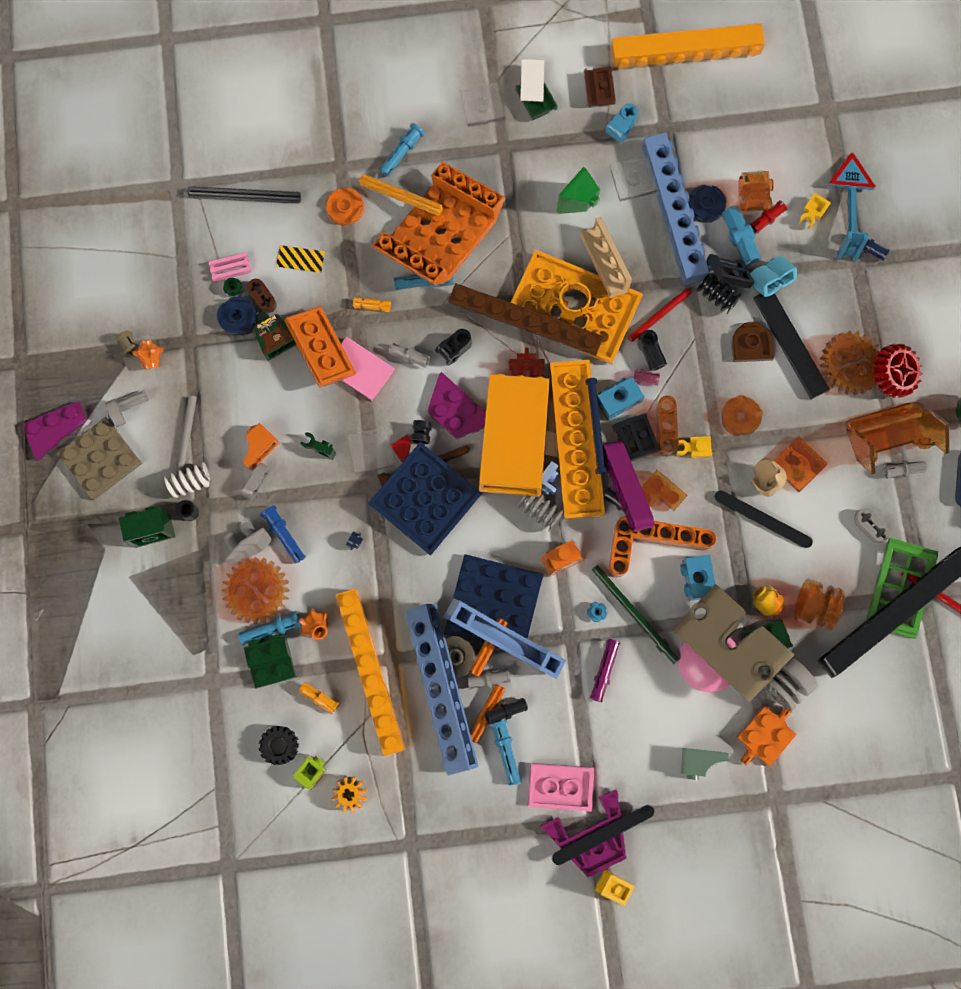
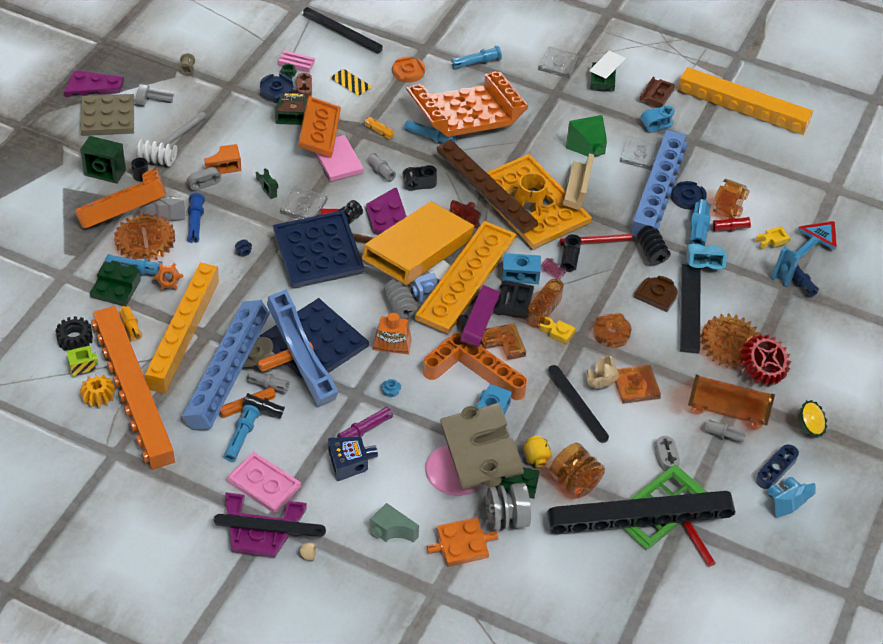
camera: 25 degrees right, 30 degrees down
(148, 354) = (195, 75): orange rock -> none
(211, 564) = (122, 201): none -> orange beam
(374, 766) = (133, 388): none -> orange brick
(401, 195) = (454, 77): light orange axle -> none
(591, 382) = (468, 297): dark blue bar -> none
(614, 887) = (247, 565): yellow slope -> none
(616, 713) = (349, 456): none -> dark blue torso
(649, 834) = (308, 551): none -> tan hinge
(662, 645) = (425, 434): dark green bar -> none
(730, 271) = (668, 231): black plate -> none

